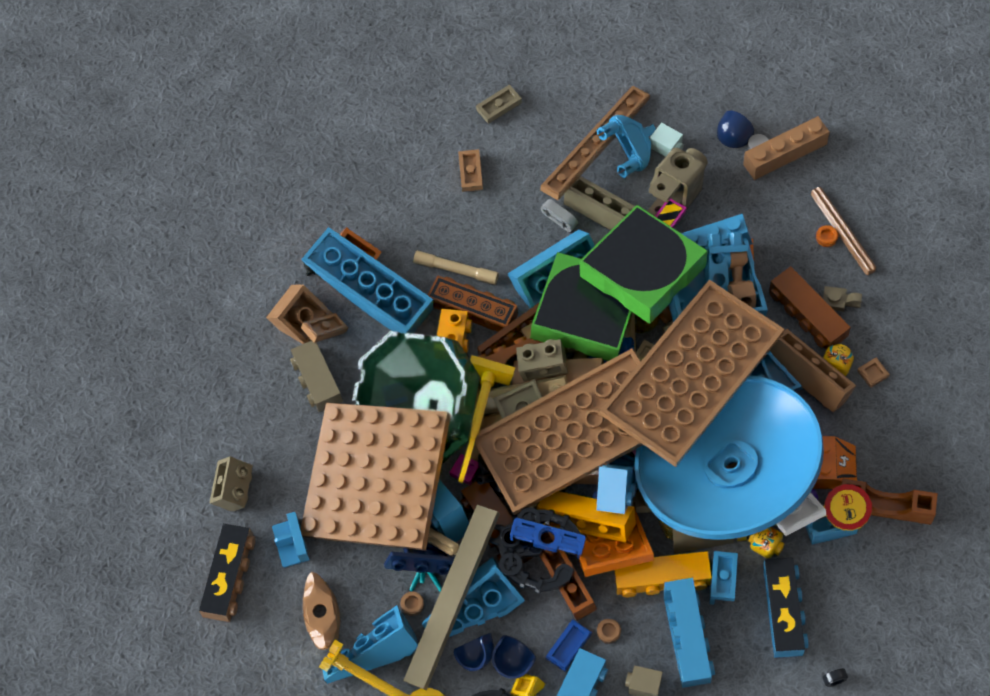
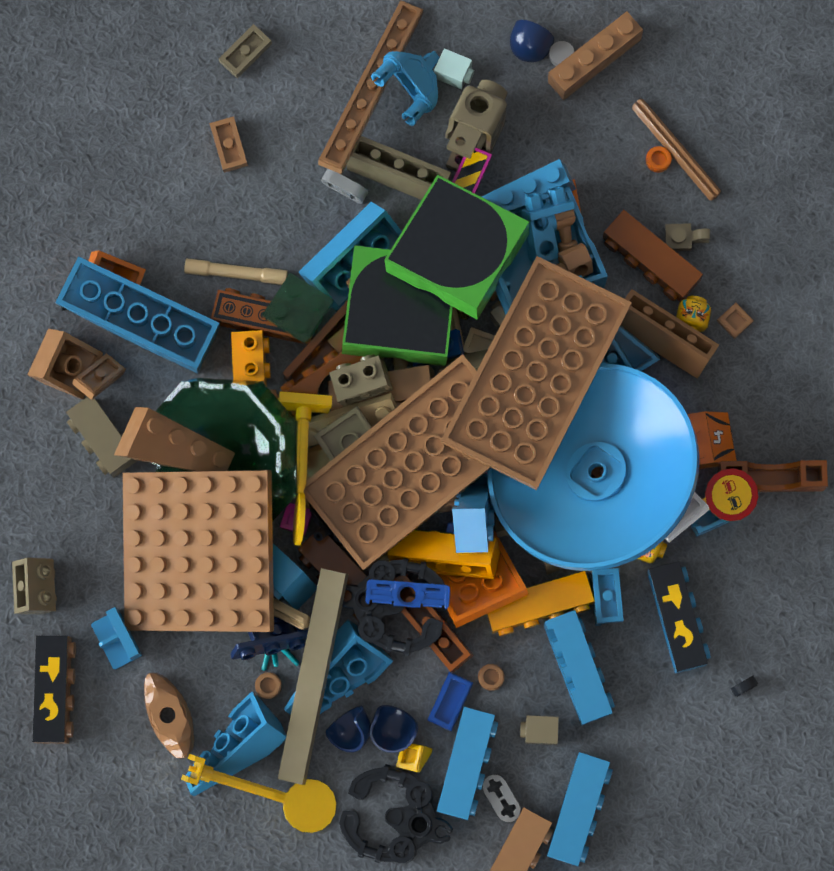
camera: 10 degrees left, 15 degrees up
(369, 381) = (167, 443): none -> medium nougat wedge
(501, 299) = (298, 308): none -> clear green plate

